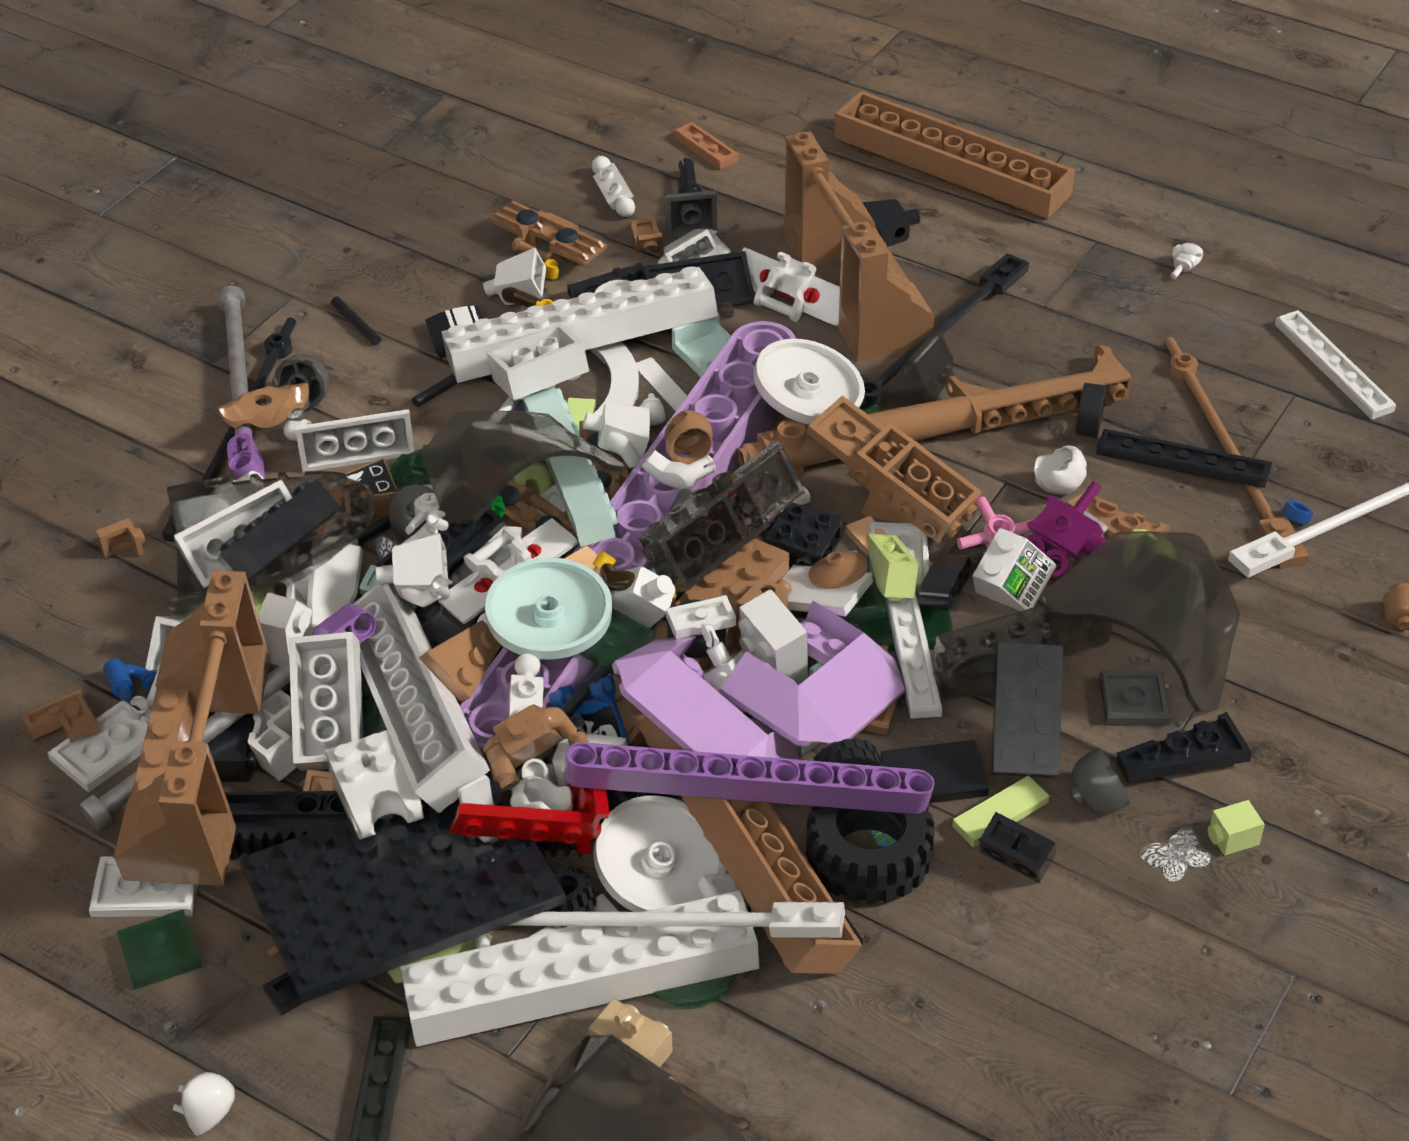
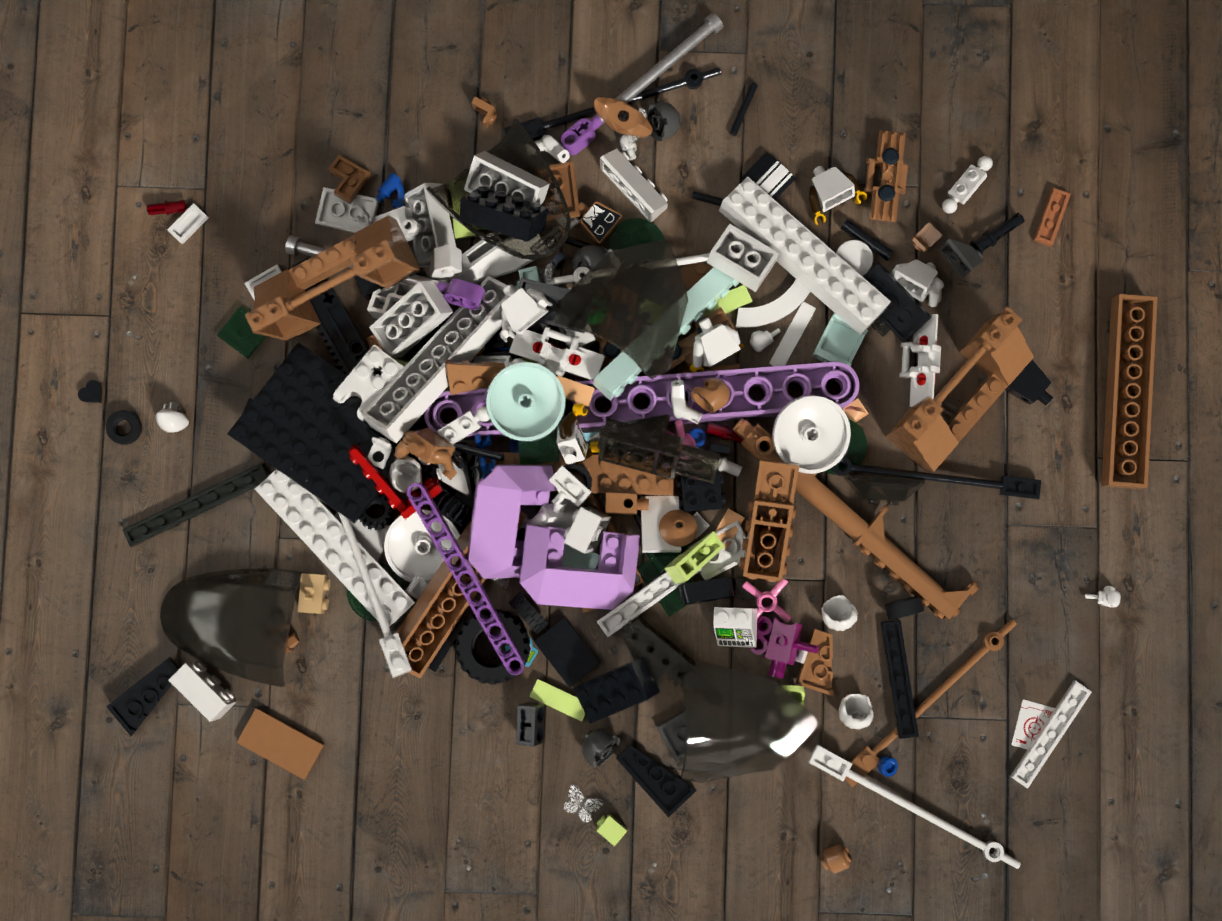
camera: 60 degrees right, 40 degrees up
(1204, 506) = (856, 711): none -> white hair
(1310, 377) = (1030, 722): none -> white sticker

